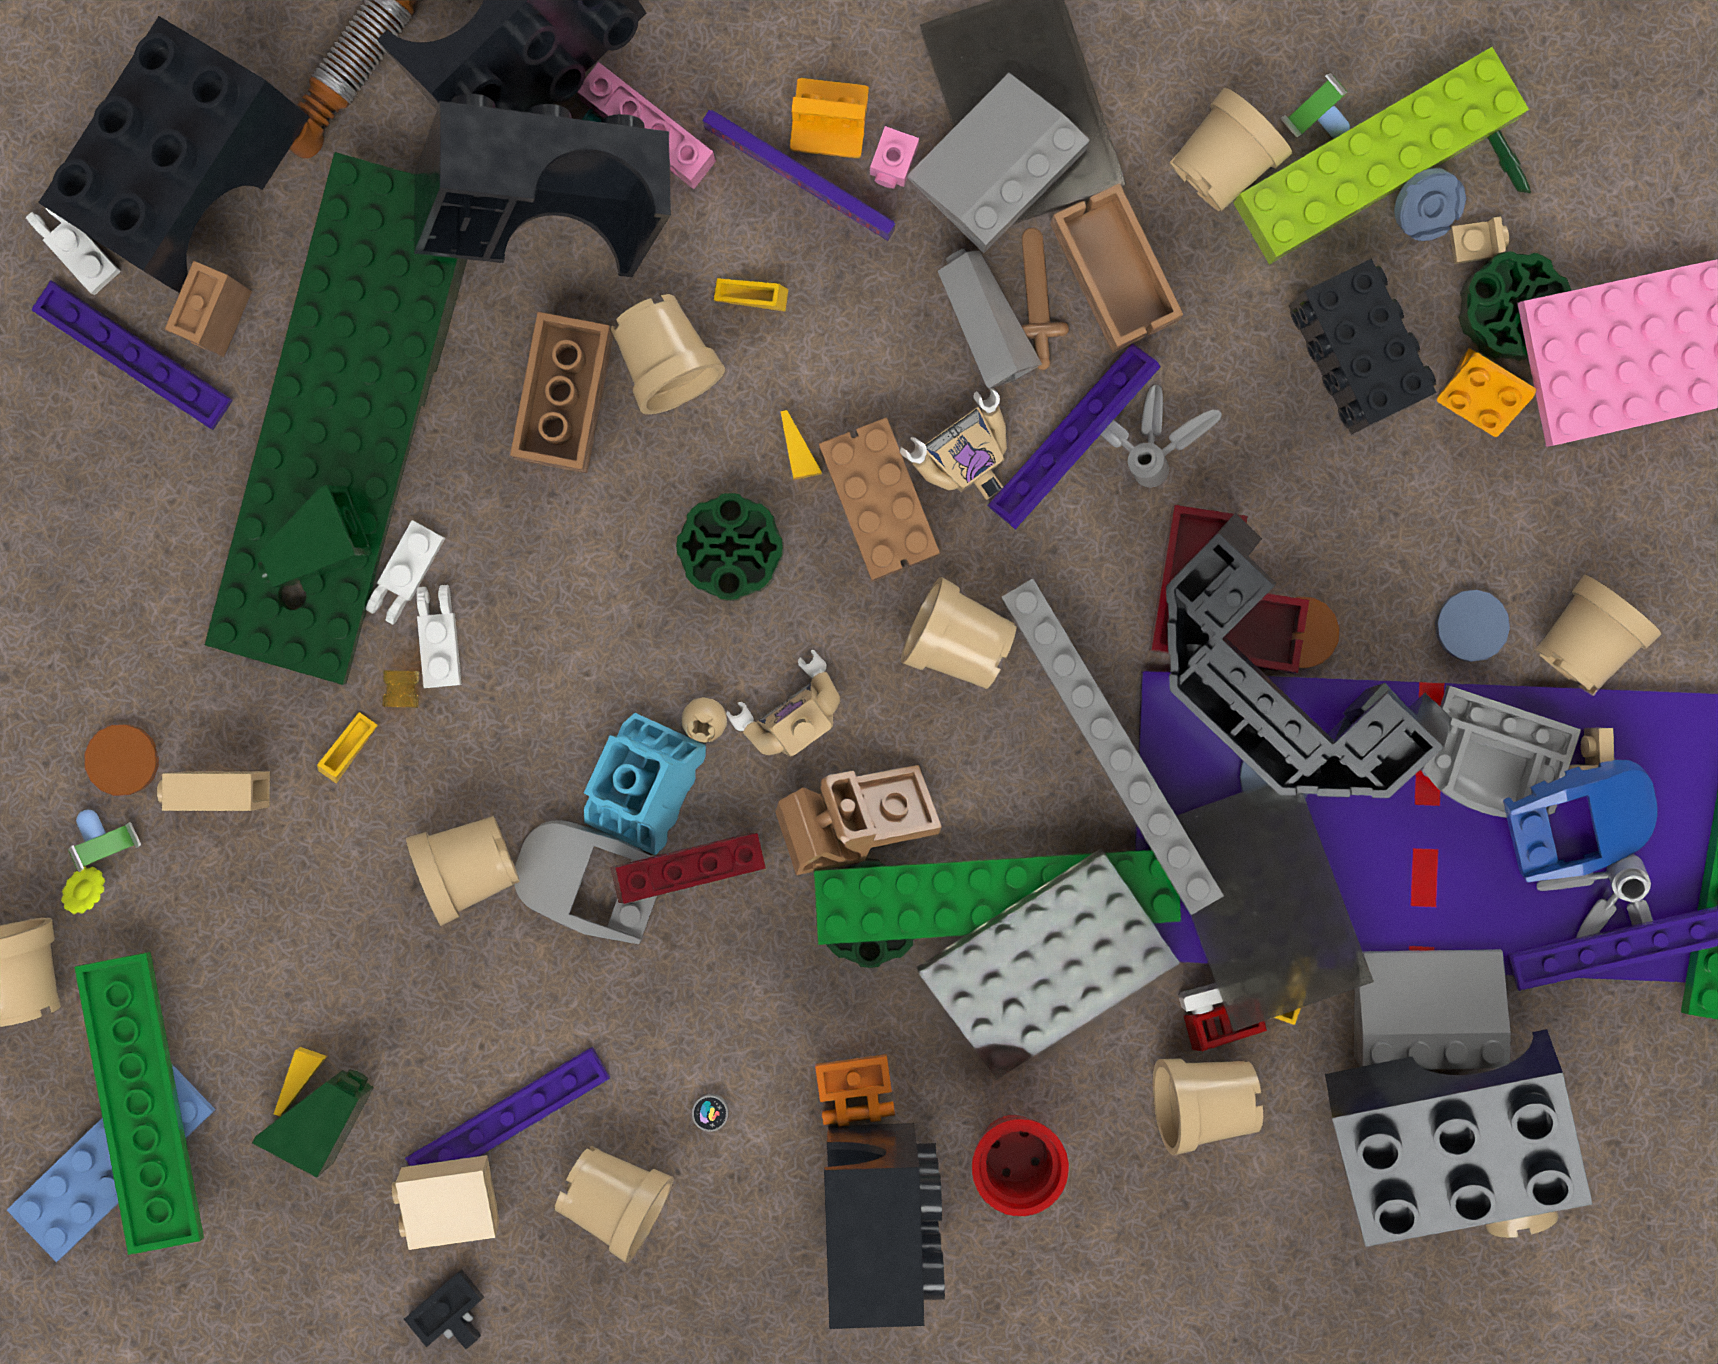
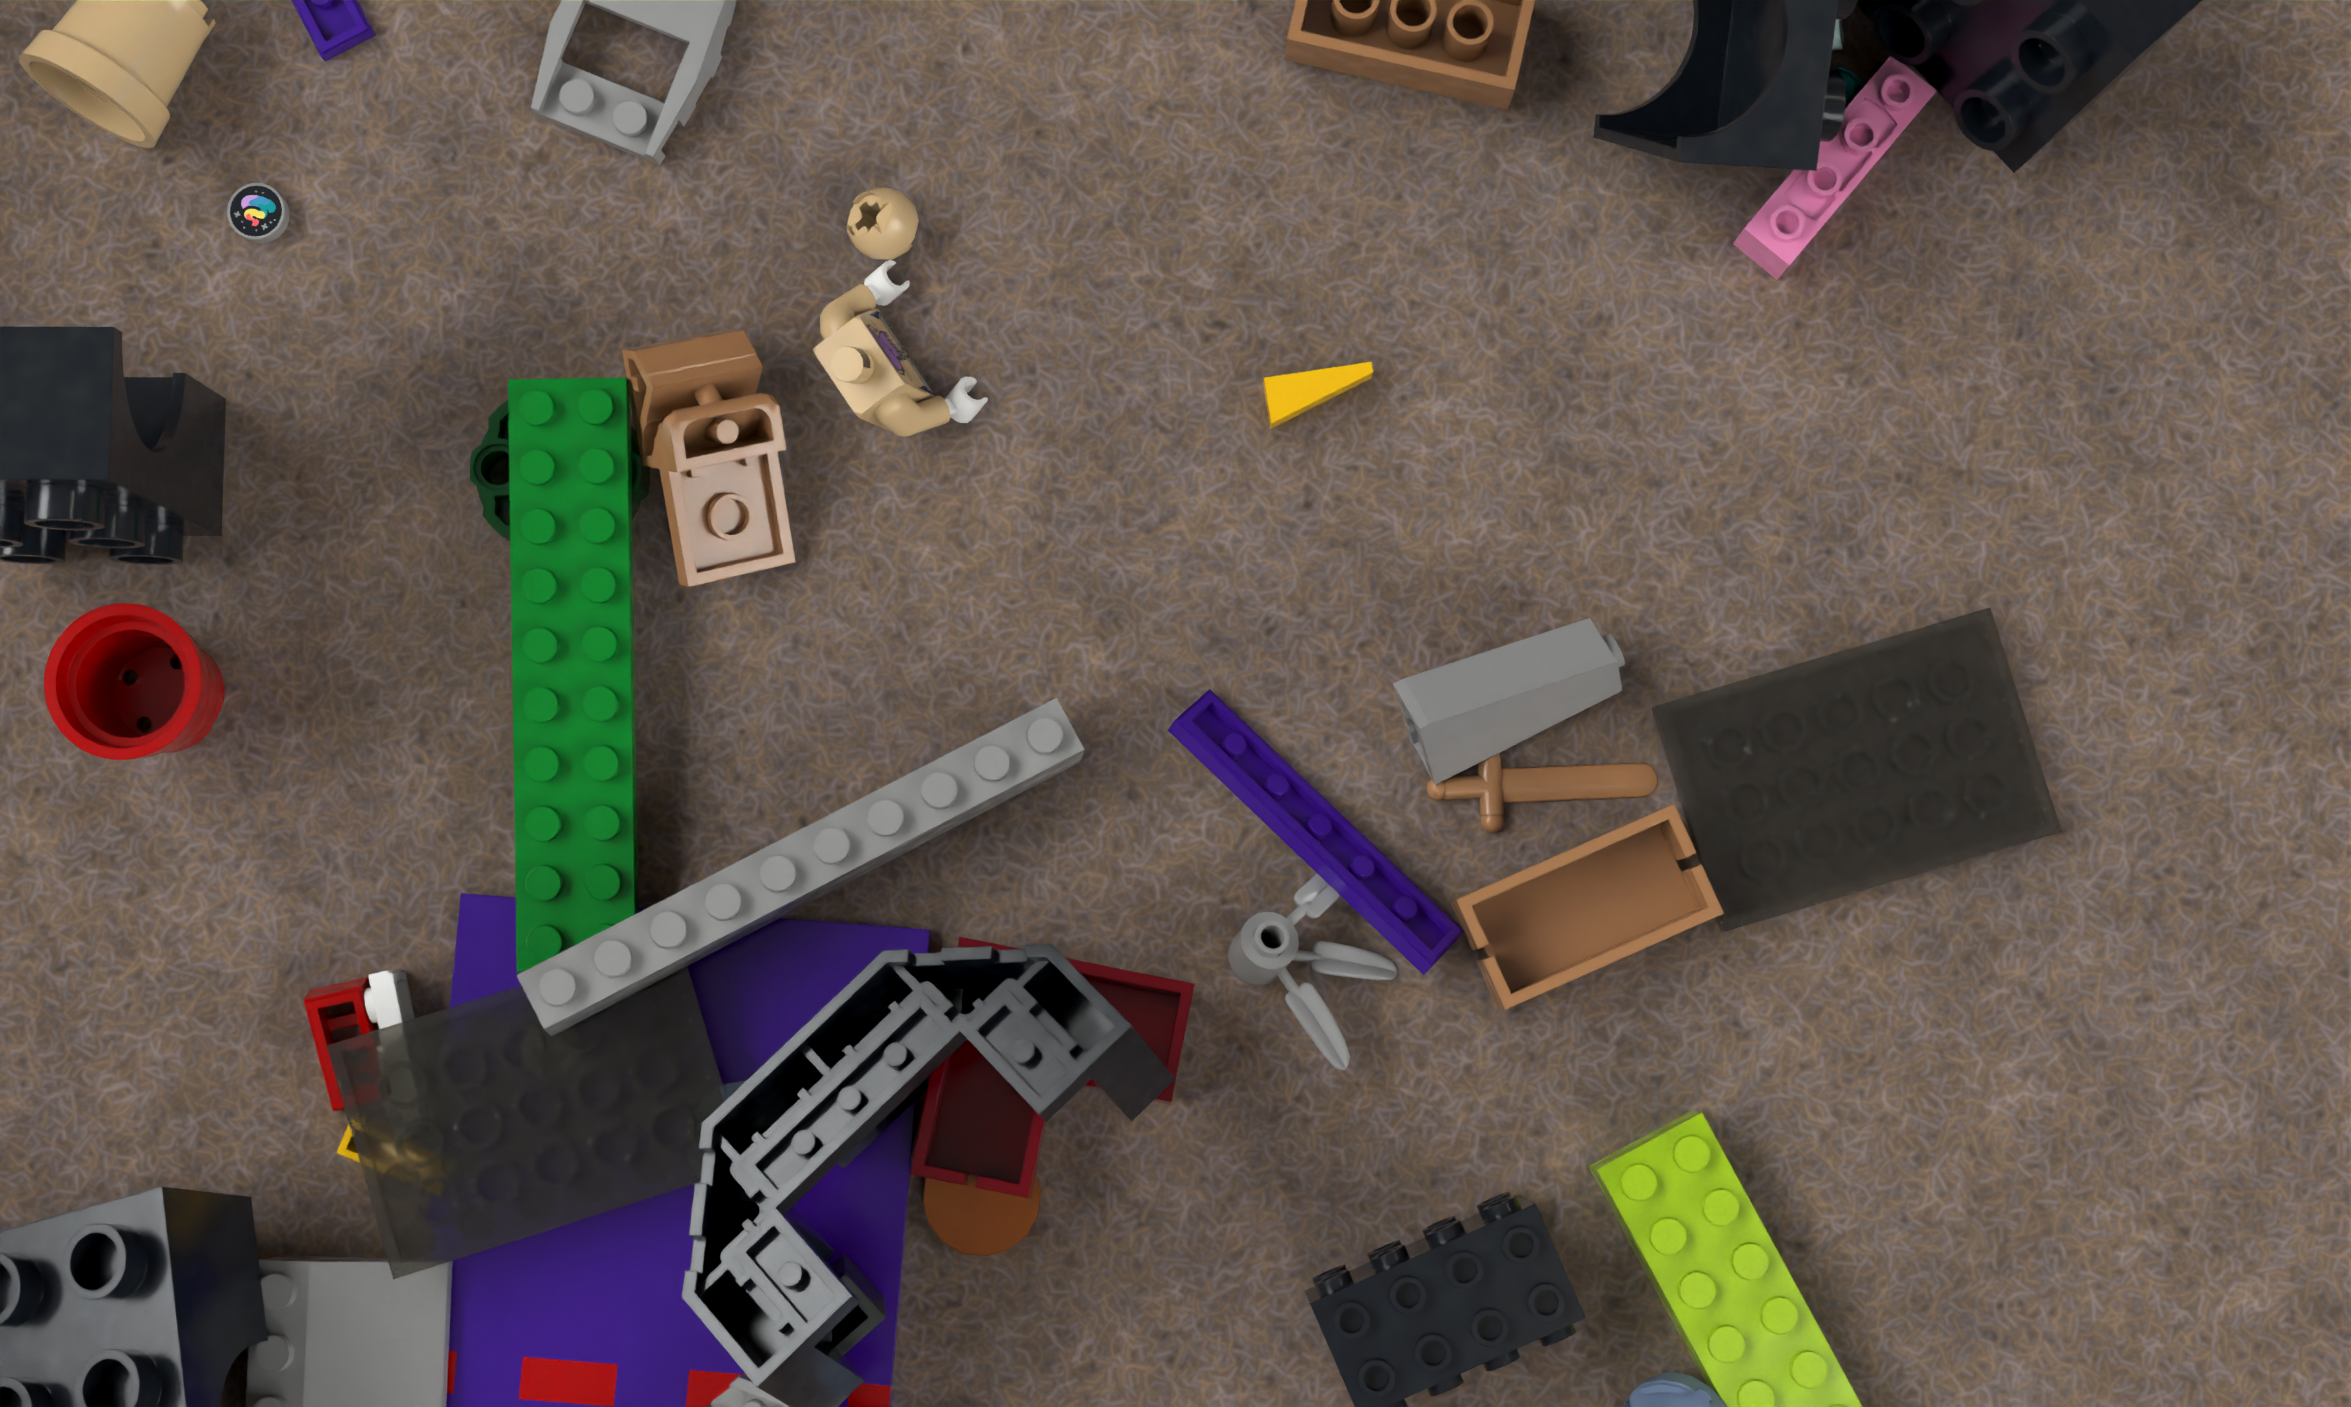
camera: 90 degrees right, 5 degrees down
(642, 782) = (788, 123): medium azure slope -> none
(664, 355) = (1464, 177): tan piece -> none
(687, 867) = (644, 182): dark red brick -> none
(710, 576) = (1109, 302): dark green connector -> none
(751, 293) = (1562, 327): yellow piece -> none
(799, 174) = (1751, 406): dark purple tile -> none
(829, 118) = (1842, 458): light orange bracket -> none
(855, 1079) = (295, 436): orange plate -> none
(879, 499) = (1223, 512): medium nougat piece -> none
(893, 158) = (1774, 558): bright pink brick -> none
(958, 636) = (994, 627): tan piece -> none
(965, 450) = (1297, 653): torso -> none
(998, 161) = (1764, 722): light grey slope -> none
(1048, 964) = (458, 752): clear smoke plate -> none
(1204, 1102) = (217, 999): tan piece -> none
(1229, 150) = (1771, 1097): tan piece -> none
(1320, 108) = (1842, 1256): piece -> none

